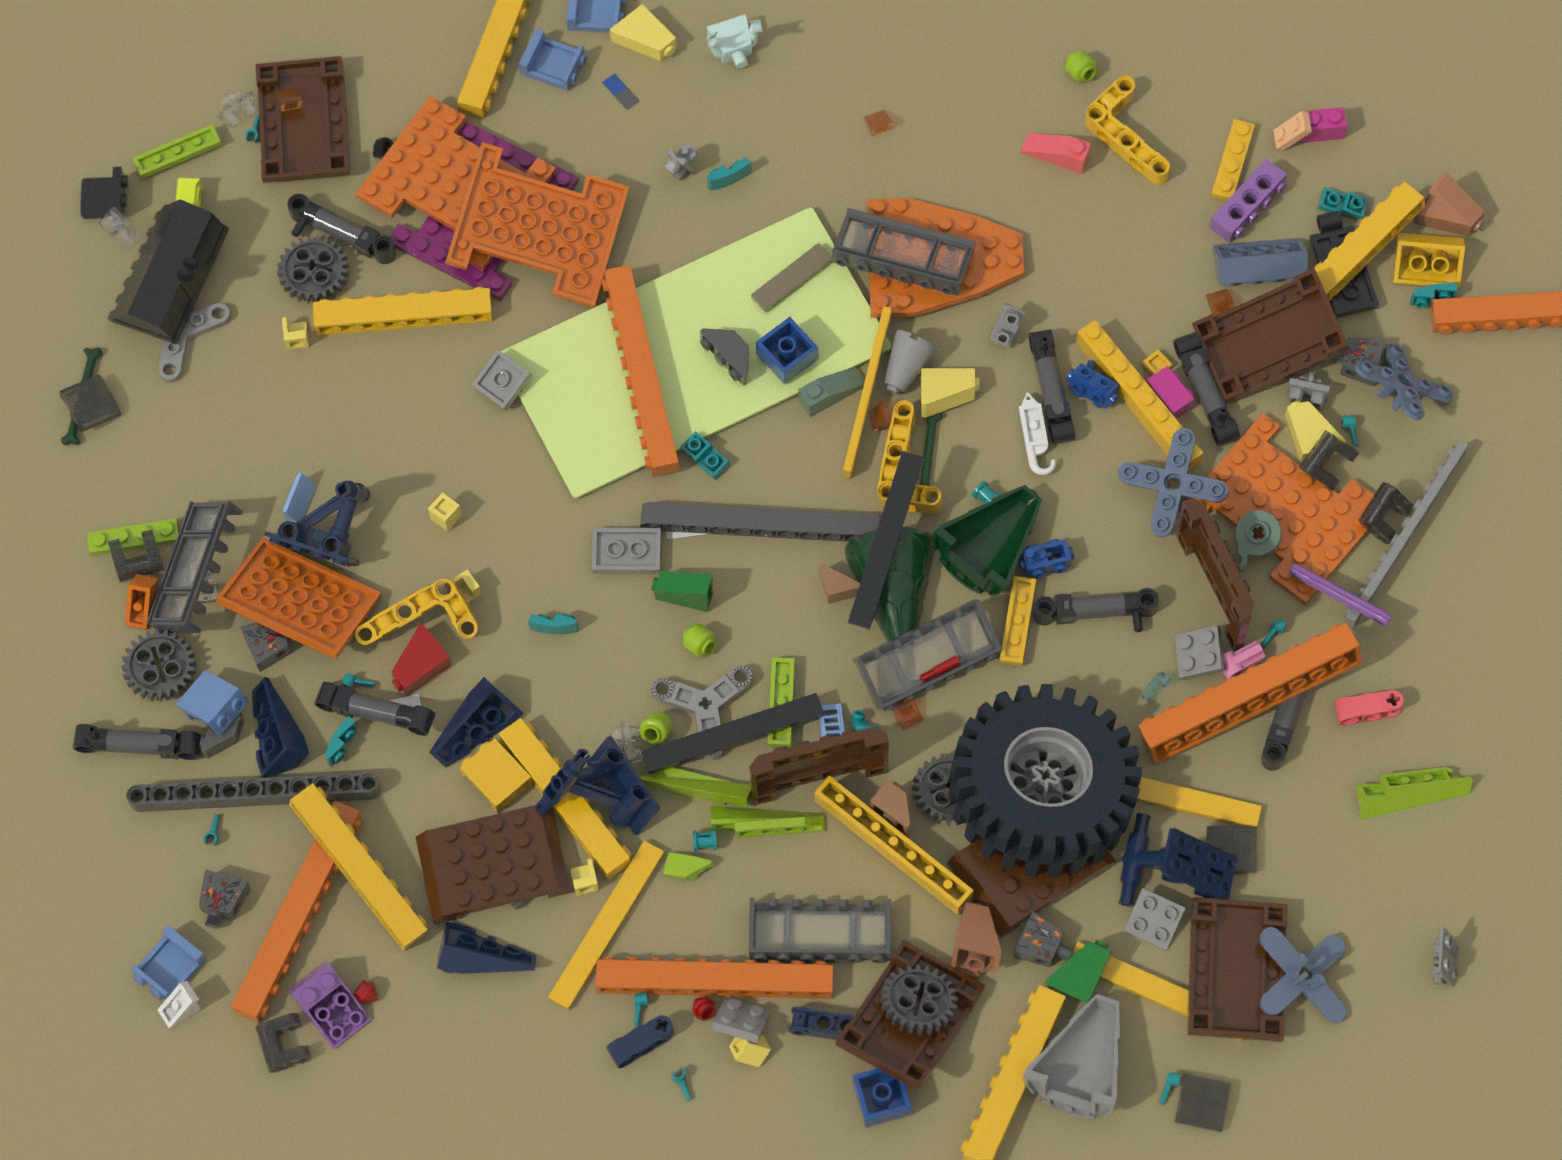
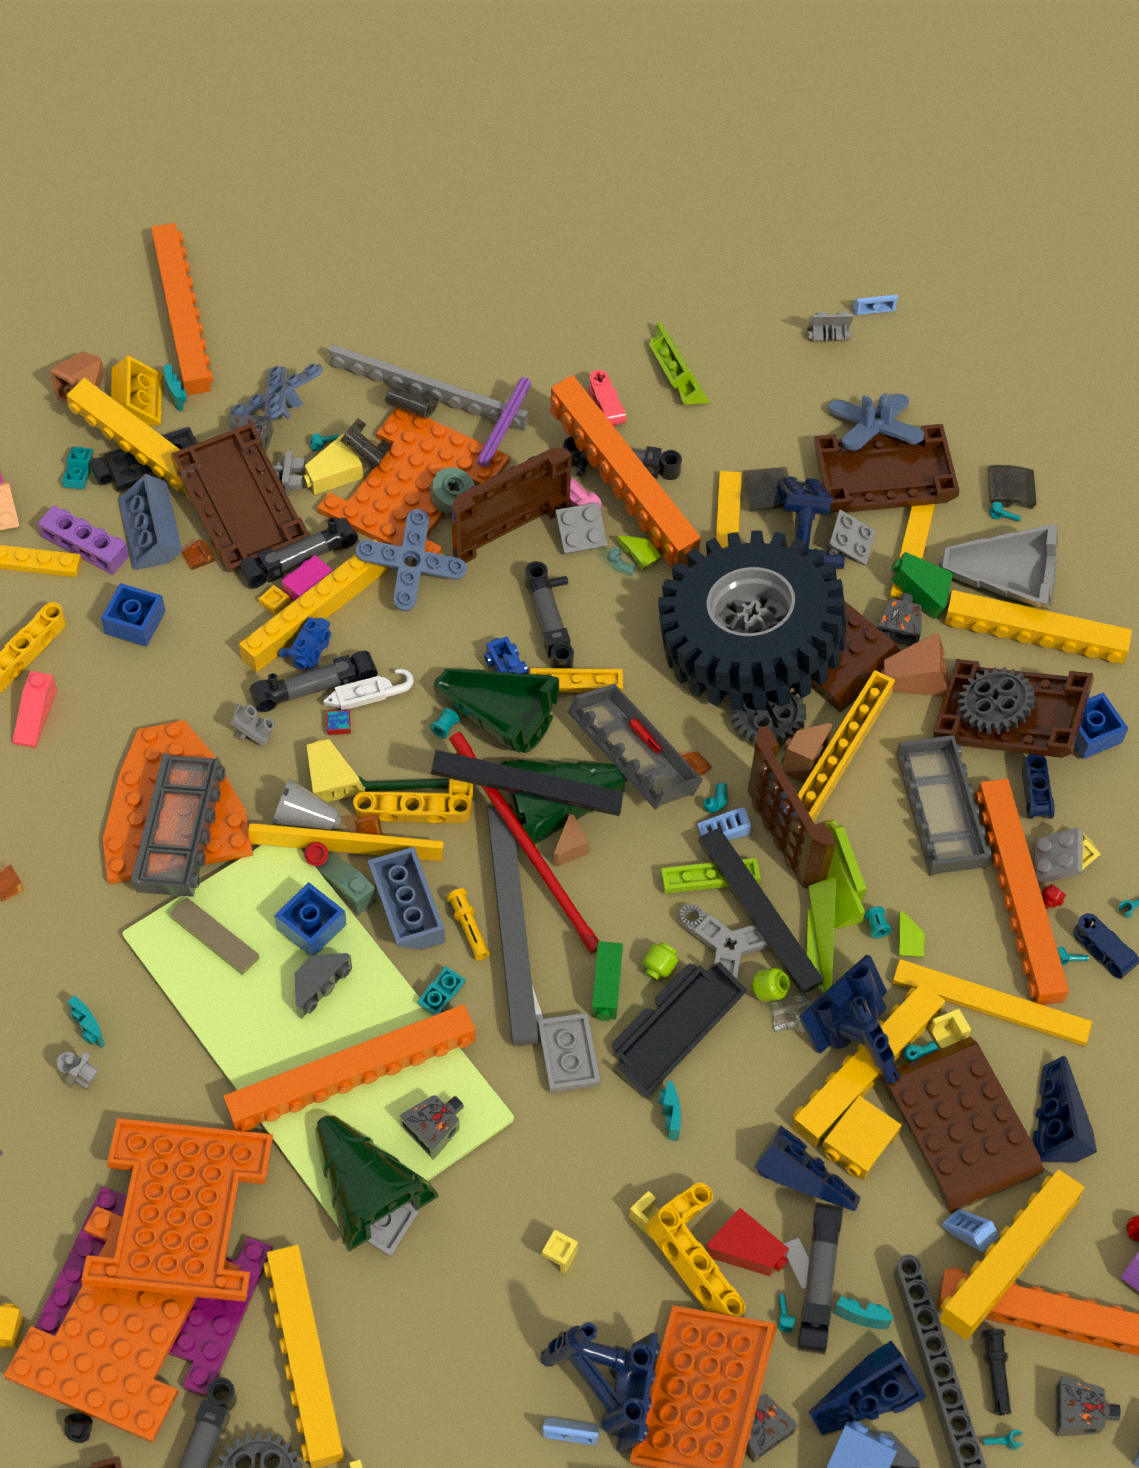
camera: 105 degrees left, 10 degrees down
(278, 840) = (996, 1358): none -> black pin
(388, 844) = (973, 1230): none -> light blue slope
(535, 367) = (364, 1180): none -> dark green cone
(568, 844) = (912, 1052): none -> teal arm
(576, 427) = (432, 1123): none -> dark grey torso
(626, 633) = (684, 1016): none -> black slope
(741, 583) = (585, 932): none -> red piece
(779, 484) = (466, 913): none -> yellow pin
(796, 434) = (407, 900): none -> sand blue slope
(858, 366) = (316, 854): none -> red plate
(1005, 405) = (338, 722): none -> tile
(1148, 235) = (133, 614): none -> blue brick
(1173, 699) = (640, 549): none -> lime slope
(1480, 1020) = (875, 304): none -> light blue slope

